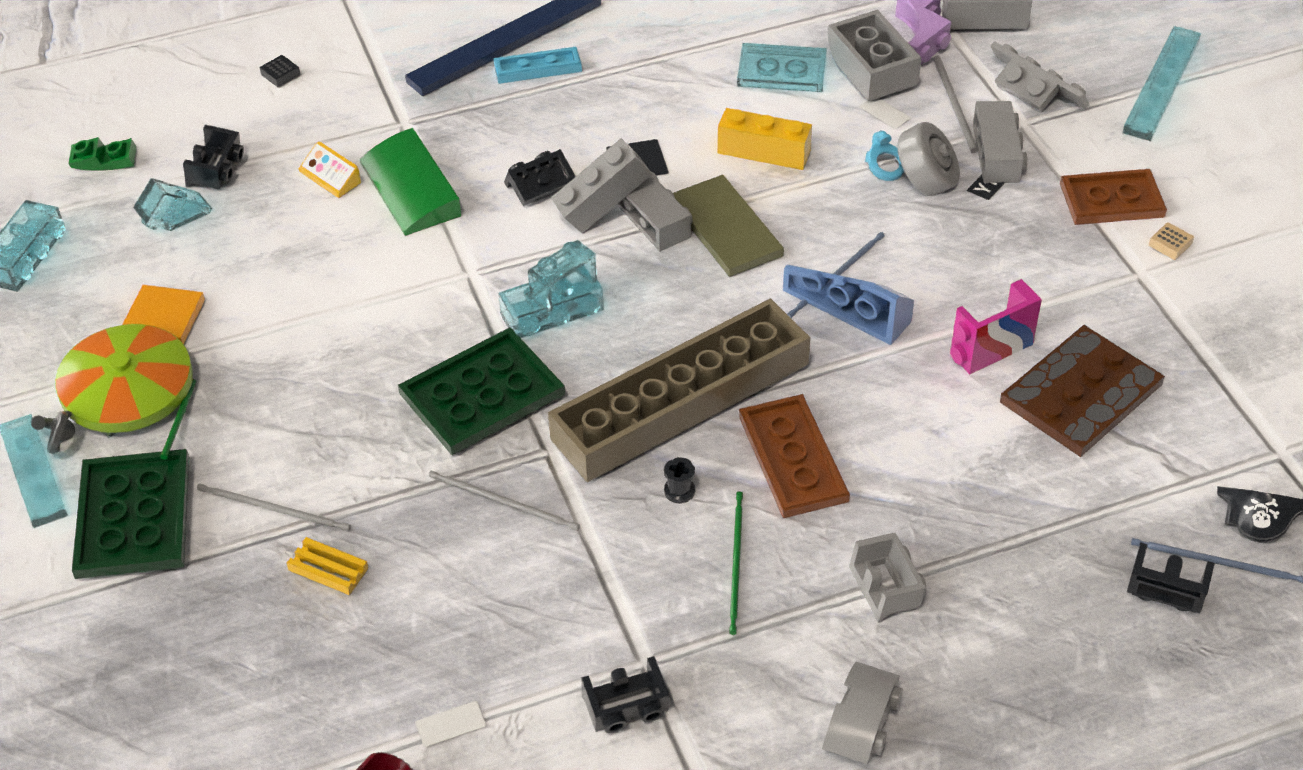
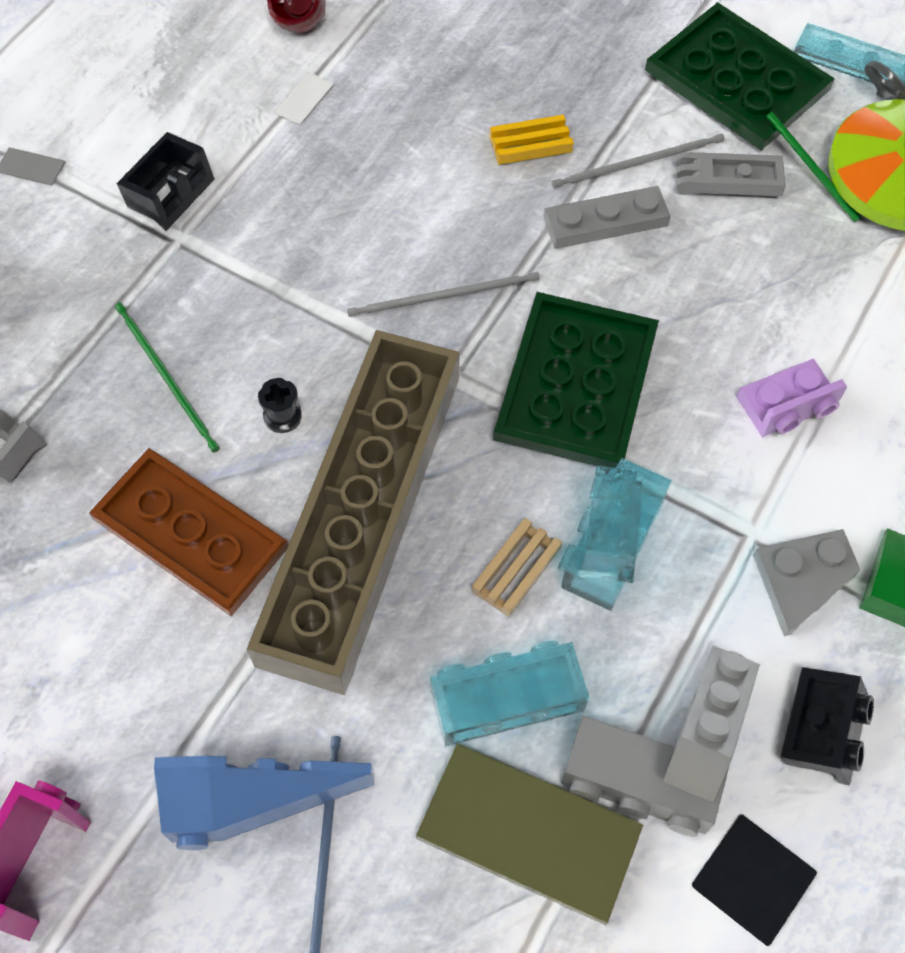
camera: 140 degrees right, 15 degrees up
(233, 448) = (730, 174): none -> light grey hinge
(344, 479) = (606, 217): none -> light grey plate
(373, 308) = (790, 397): none -> lavender bracket
(471, 238) = (805, 574): none -> light grey wing
(617, 324) = (537, 537): none -> tan tile
(684, 270) = (508, 692): none -> clear light blue brick

